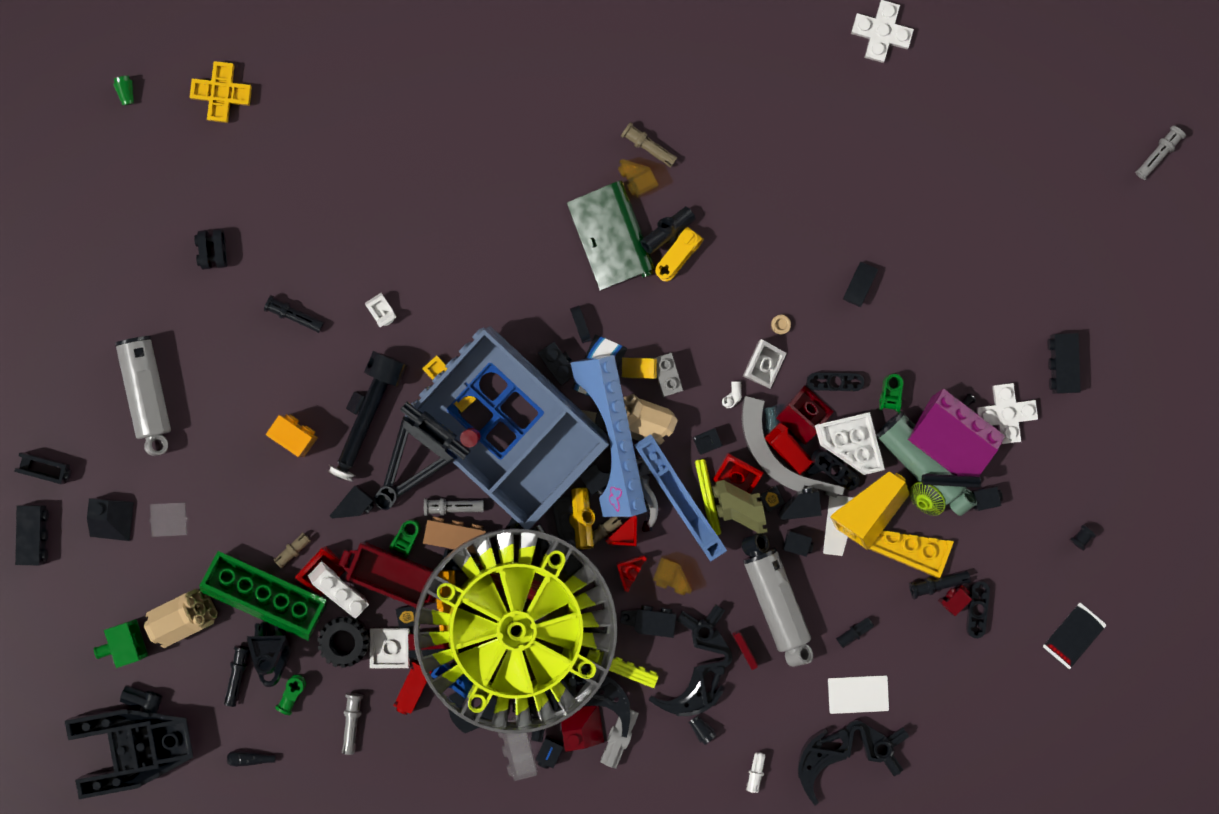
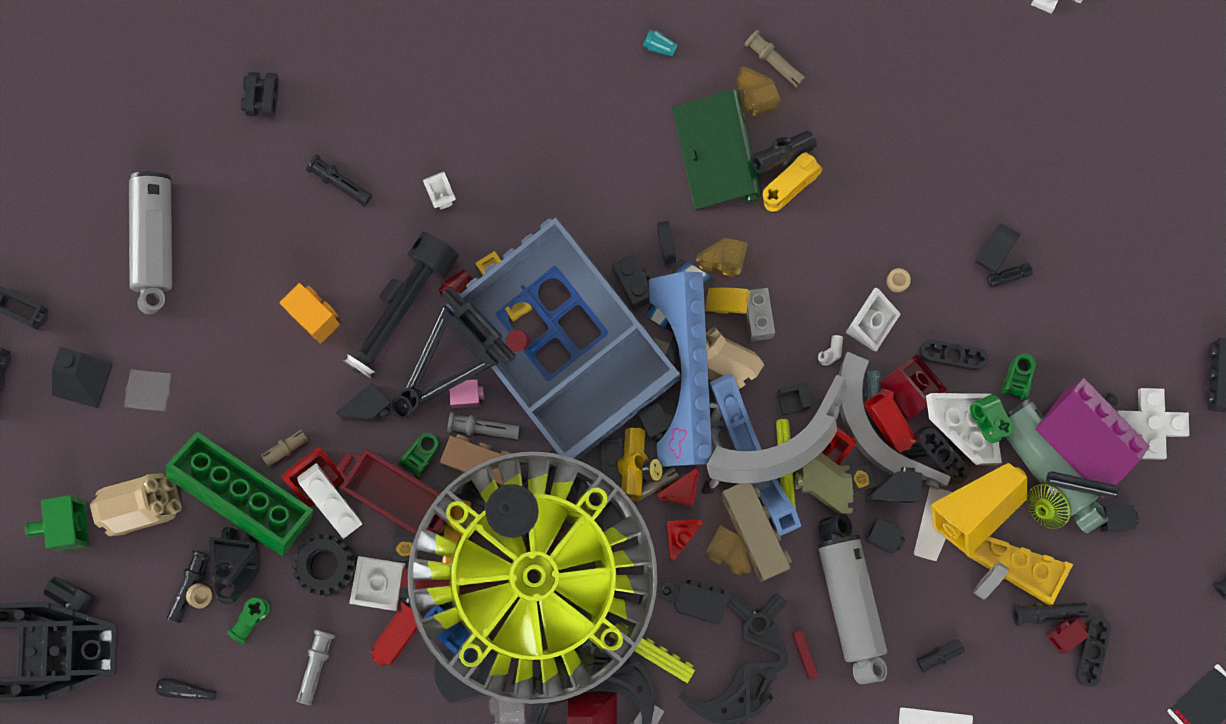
camera: 10 degrees right, 10 degrees down
(246, 682) = (199, 595): none -> tan tile
(408, 390) = (457, 282): none -> dark red cone
(435, 482) = (466, 394): none -> bright pink brick
(490, 584) = (512, 511): none -> black piece
(547, 147) = (659, 43): none -> teal cone
(598, 522) = (652, 470): none -> tile
(632, 327) = (724, 255): none -> clear yellow slope
(690, 559) = (753, 525): none -> dark tan slope
(709, 497) = (787, 457): none -> light grey arch
(870, 434) = (991, 416): none -> green piece
(874, 305) = (1010, 275): none -> black axle
(887, 567) = (991, 580): none -> light grey beam

